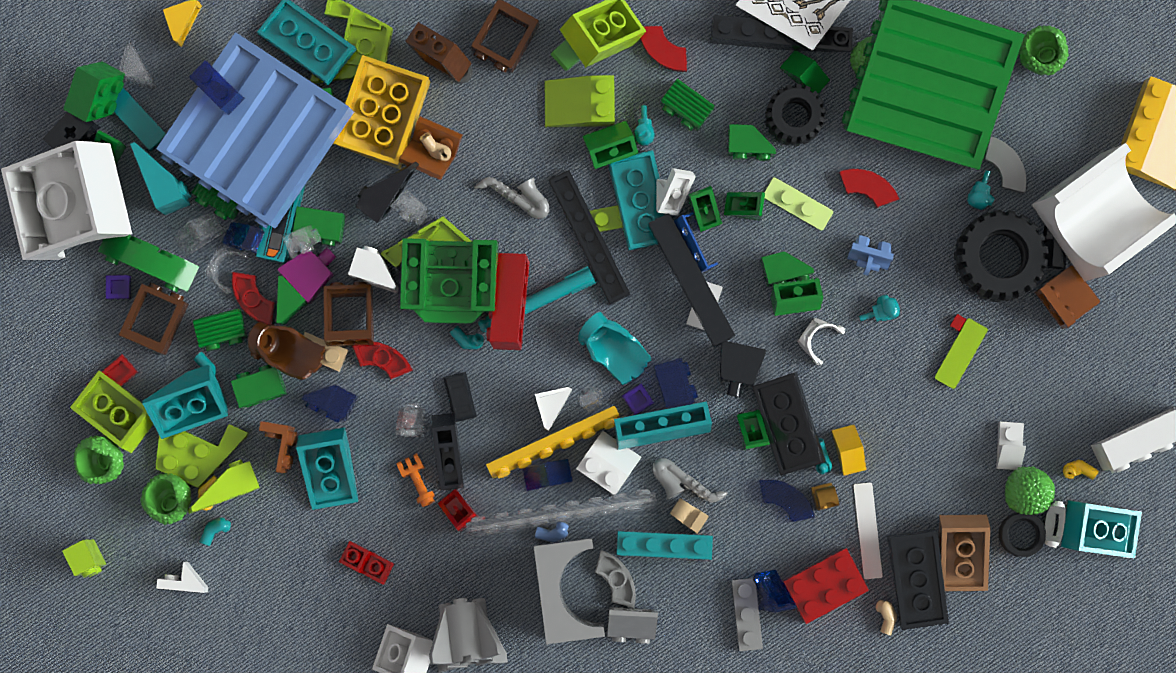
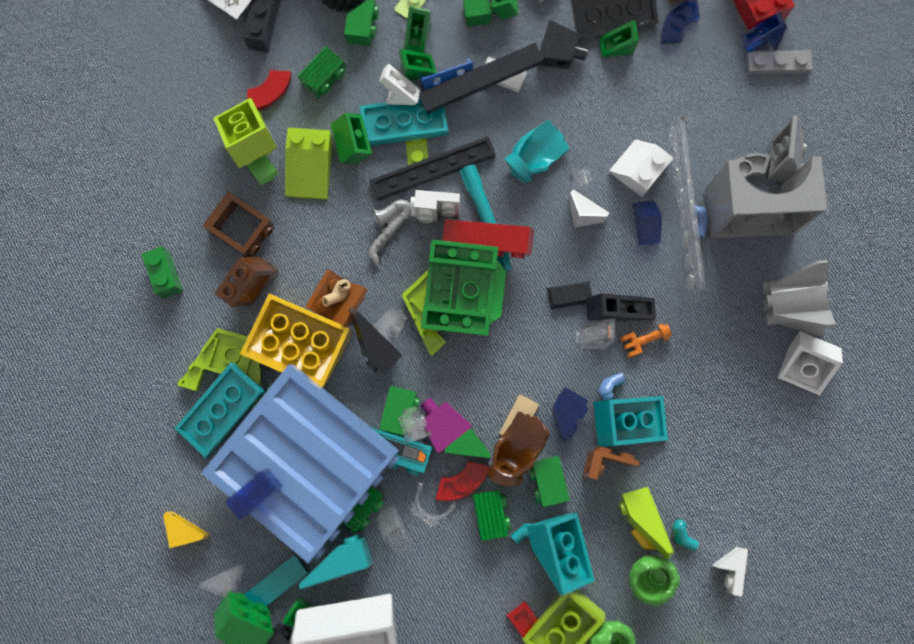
camera: 85 degrees left, 5 degrees down
(118, 287) = (440, 615): dark purple tile -> none
(145, 257) = (417, 579): green brick -> none
(162, 346) = (496, 590): reddish brown window -> none
(194, 457) = (613, 549): lime wing -> none
(243, 237) = (403, 484): clear blue slope -> none
(348, 337) = (509, 388): reddish brown window -> none
(364, 442) = (607, 385): none -> medium blue arm
(366, 562) = (720, 392): red slope -> none
(372, 269) = (447, 360): white slope -> none
(384, 357) = (527, 363): red tile -> none
(457, 510) = (677, 302): red slope -> none
(470, 342) = (519, 283): teal arm -> none
(539, 237) = (428, 204): none -> white plate
(544, 447) = (617, 202): yellow plate -> none
(637, 399) = (583, 138): dark purple tile -> none
(644, 131) = (337, 110): teal piece -> none
(662, 425) = (610, 114): teal brick -> none
(664, 545) = (717, 123): teal brick -> none
(672, 476) = (655, 113): light grey piece -> none
(675, 384) = (573, 103): clear blue brick -> none
(689, 515) = (692, 99): tan leg -> none

